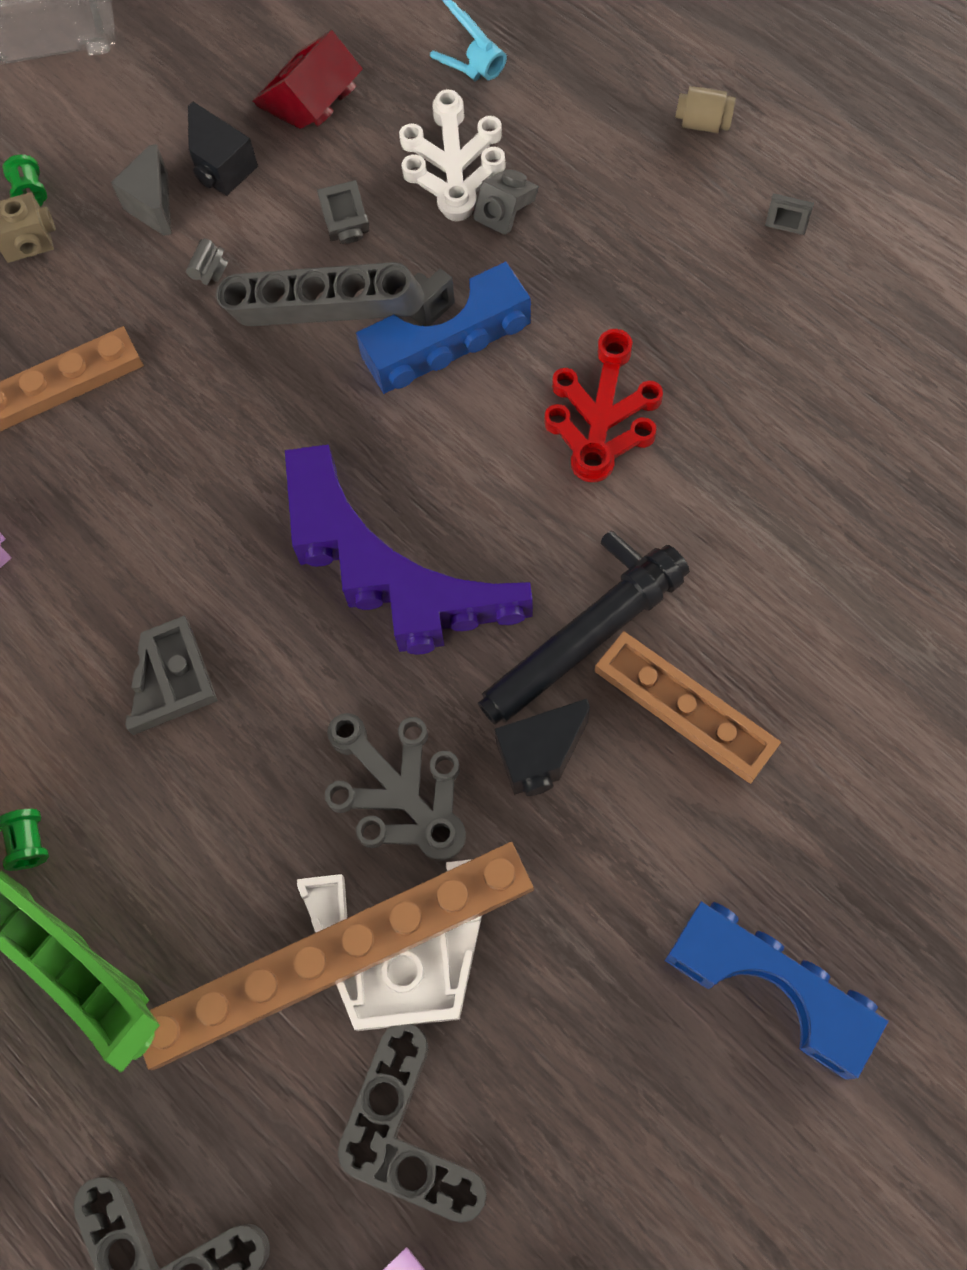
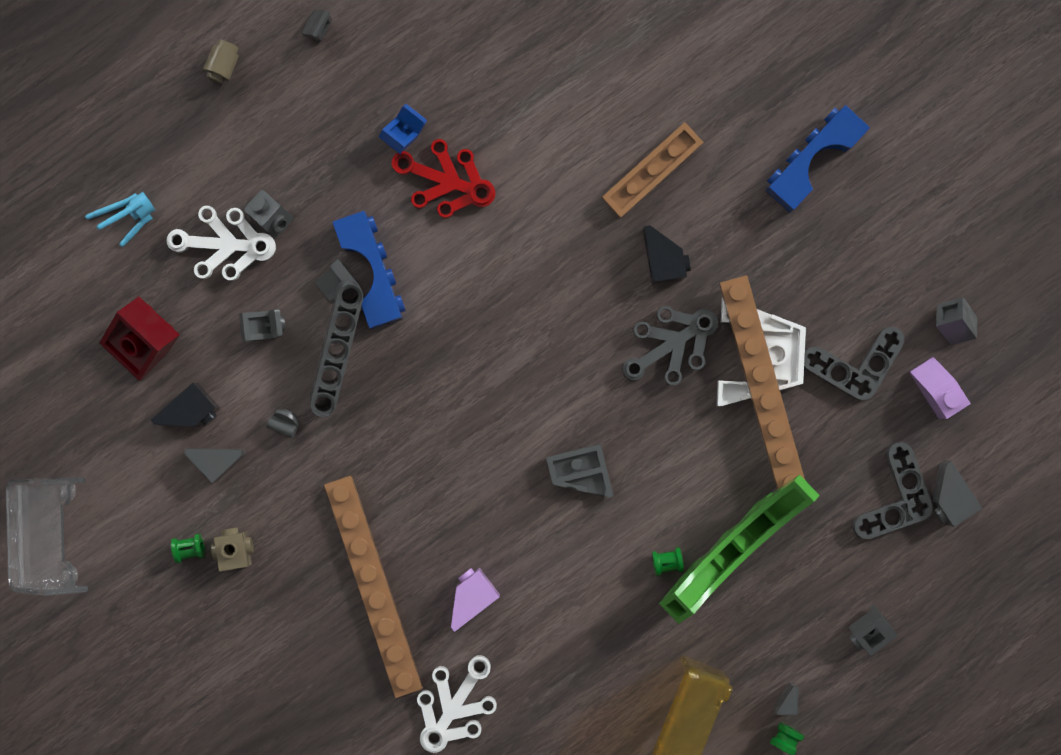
camera: 95 degrees left, 20 degrees up
(374, 574) = (562, 314): dark purple arch -> none
(638, 590) = (576, 183): black cylinder -> none
(662, 336) = (403, 129): none -> blue bracket

